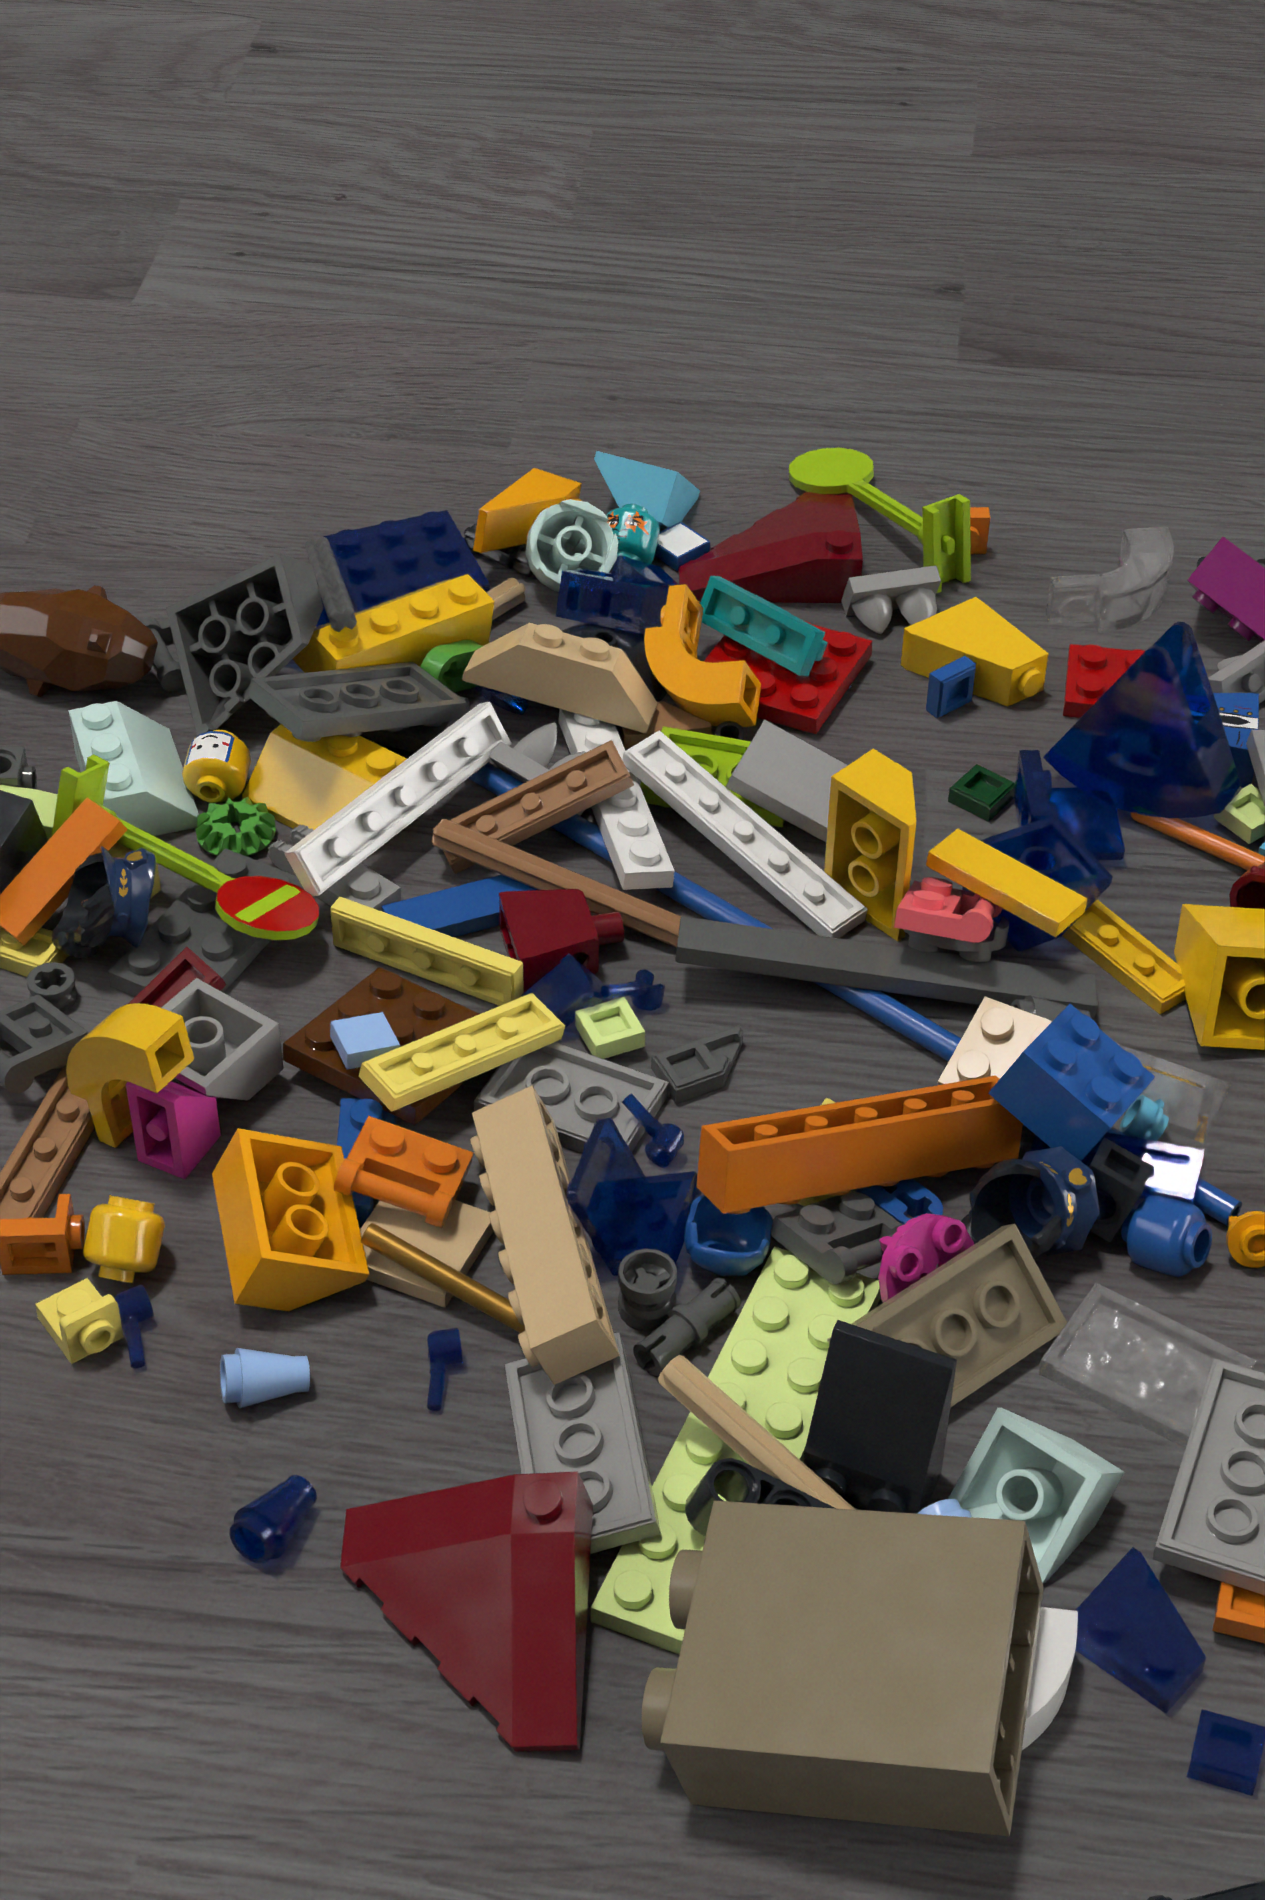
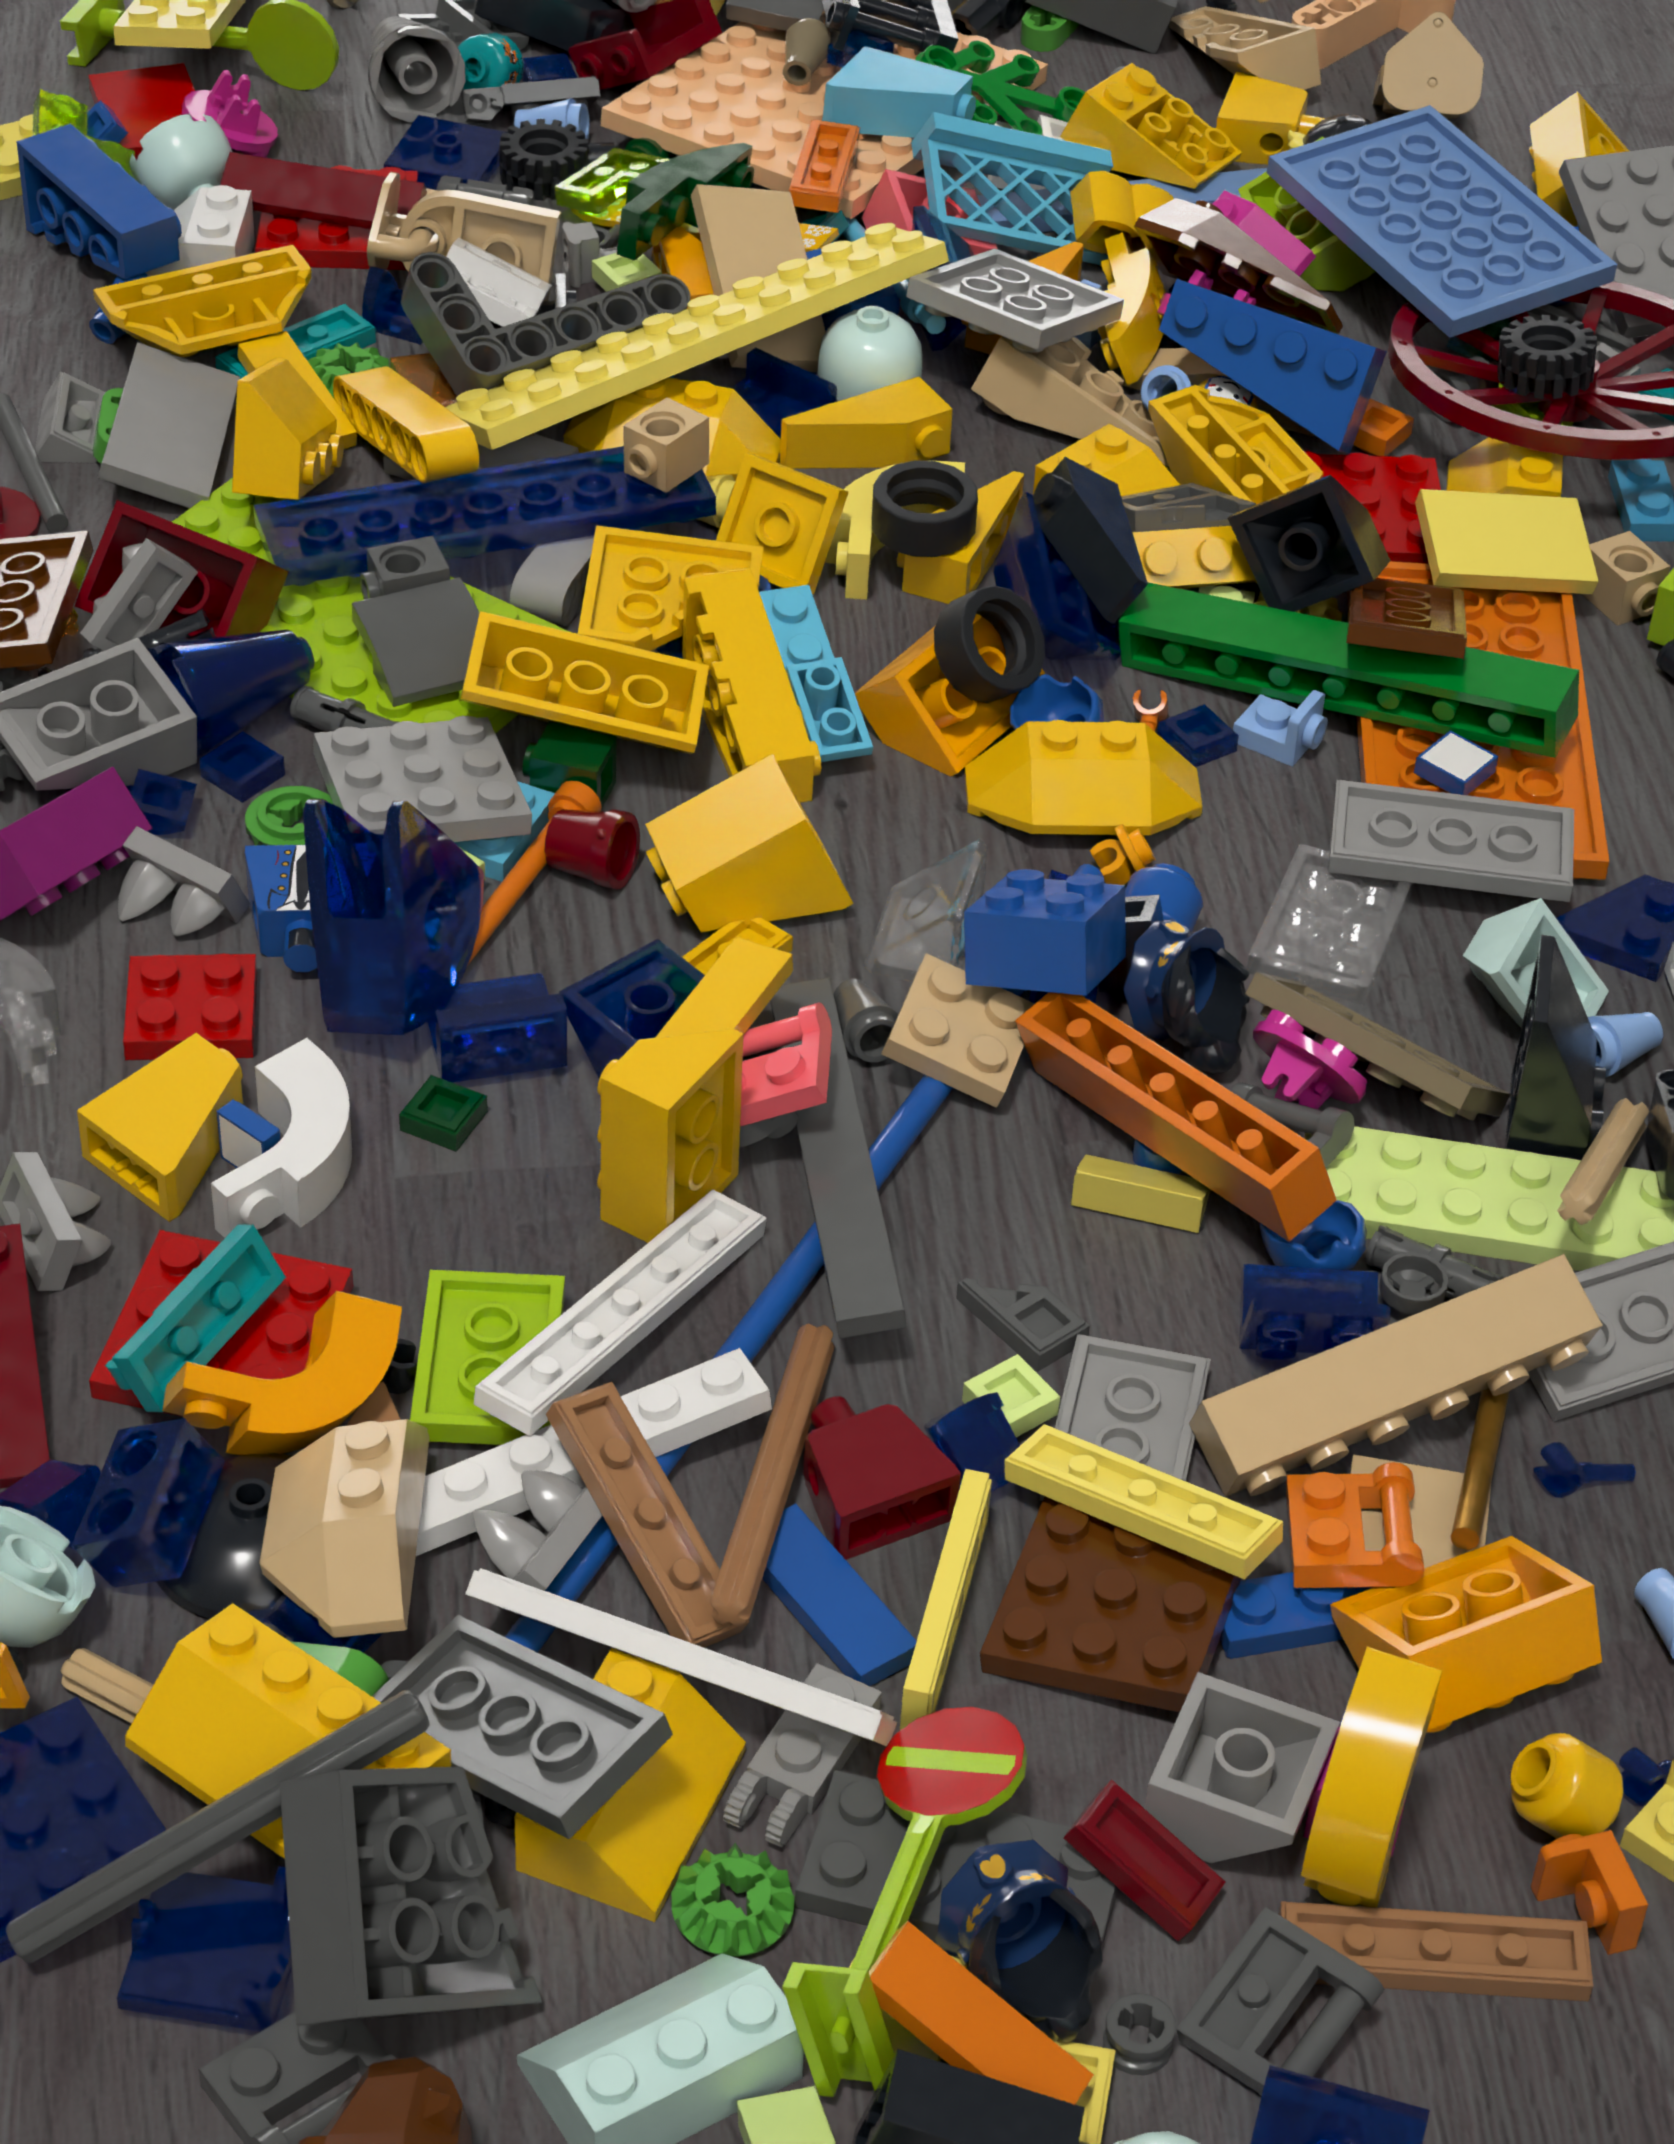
camera: 105 degrees left, 0 degrees up
(214, 764) = (630, 1935): yellow head -> none
(362, 1038) = (1178, 1588): light blue tile -> none
(642, 991) = (931, 1382): clear blue hand -> none
(665, 1139) = (1173, 1326): clear blue hand -> none
(787, 778) = (516, 1251): light grey tile -> none
(948, 717) = (309, 1165): none -> white arch

